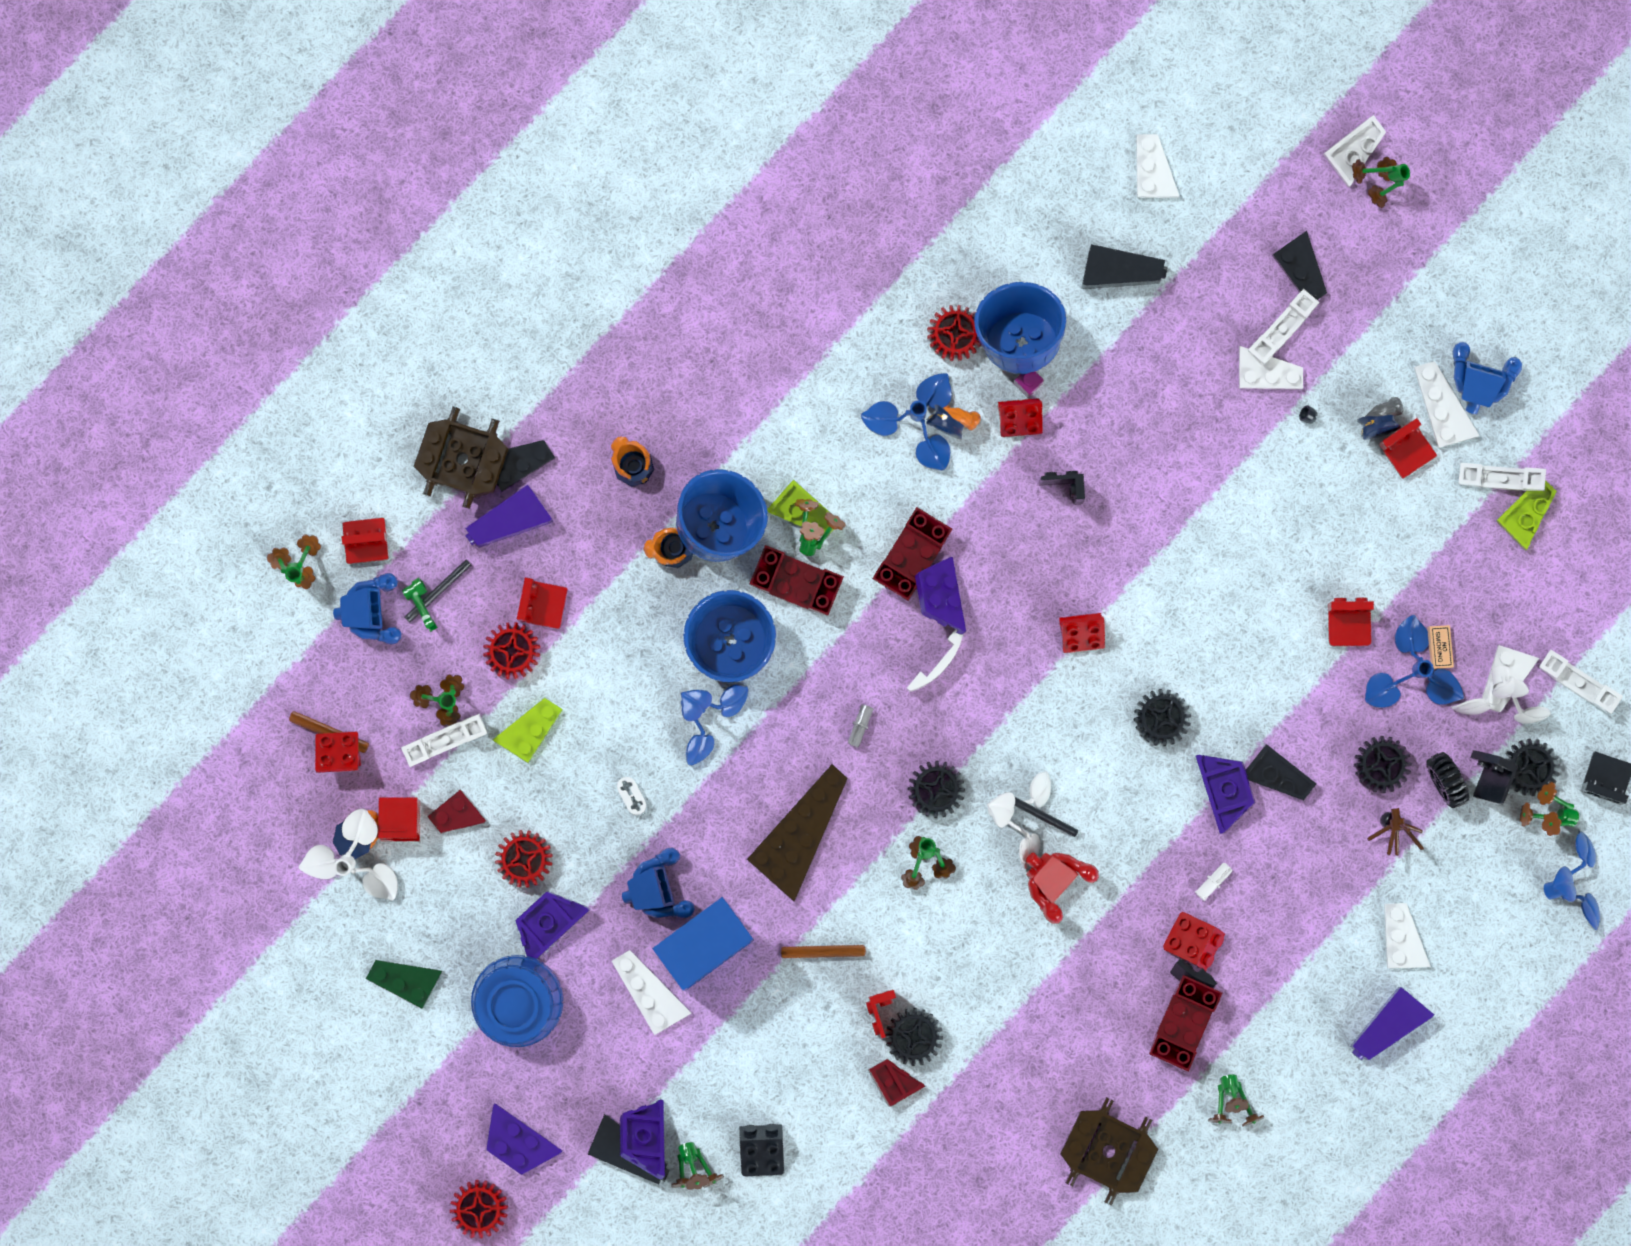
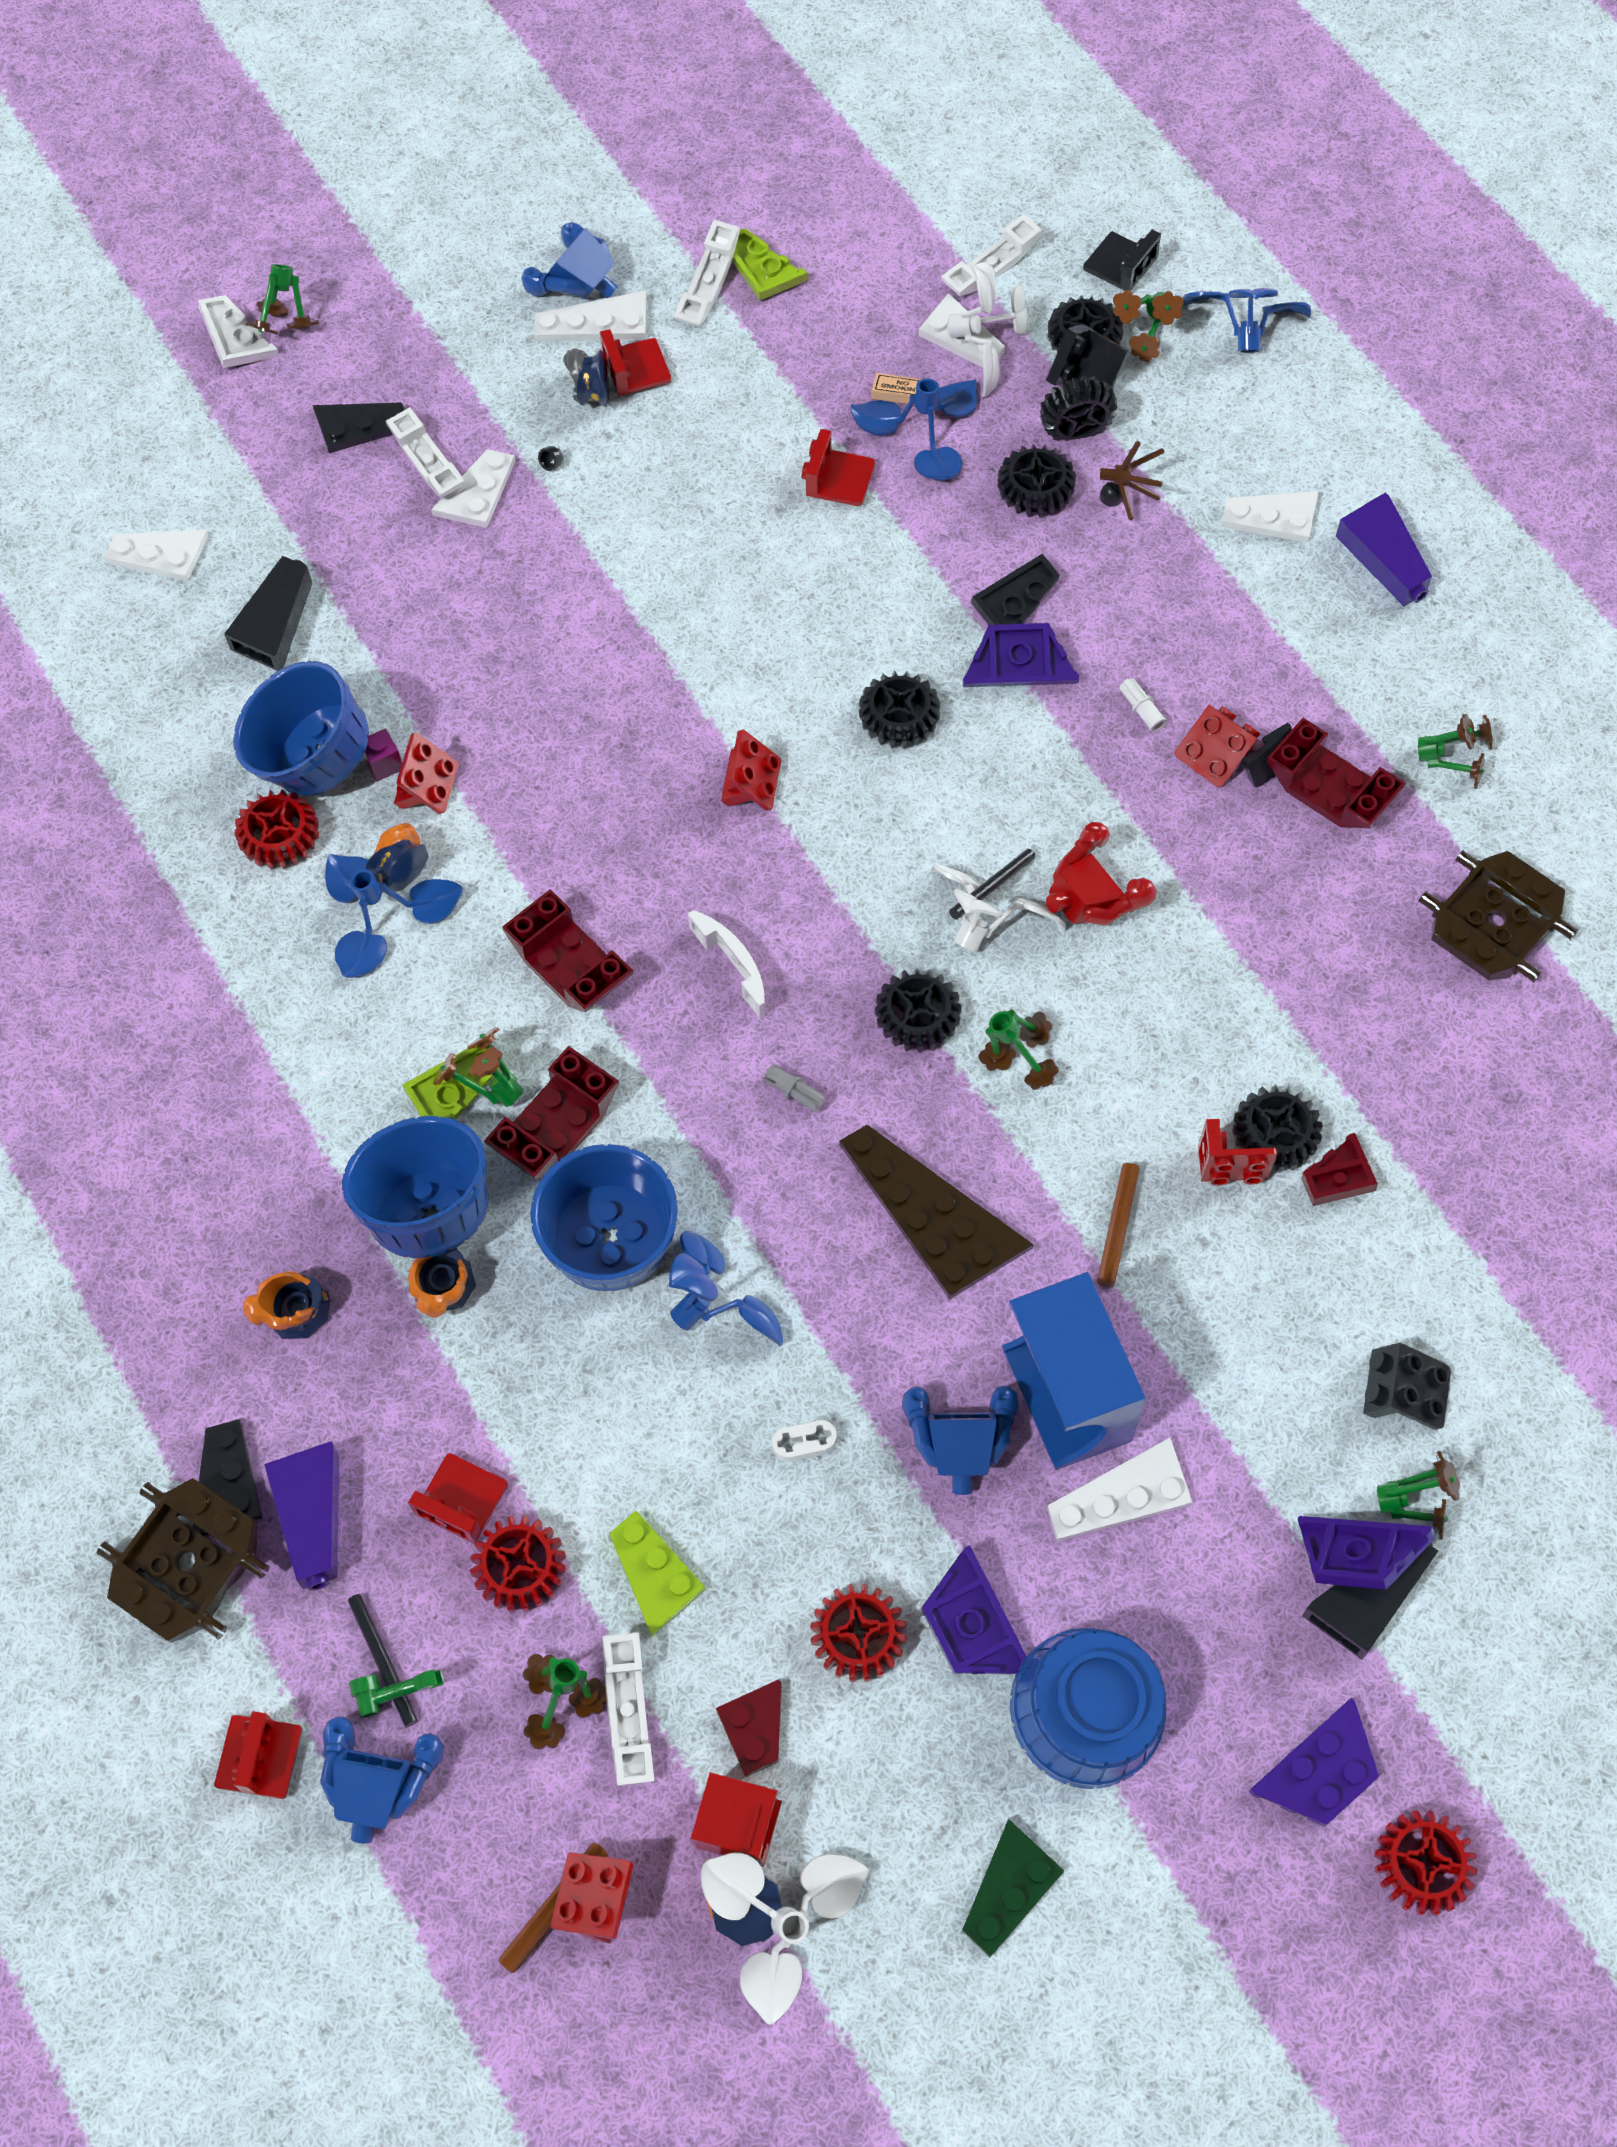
camera: 70 degrees left, 20 degrees down
(295, 571) = (268, 1881): dark orange plant -> none
(940, 595) = (641, 927): dark purple wing -> none
(1076, 490) = (542, 725): black bracket -> none

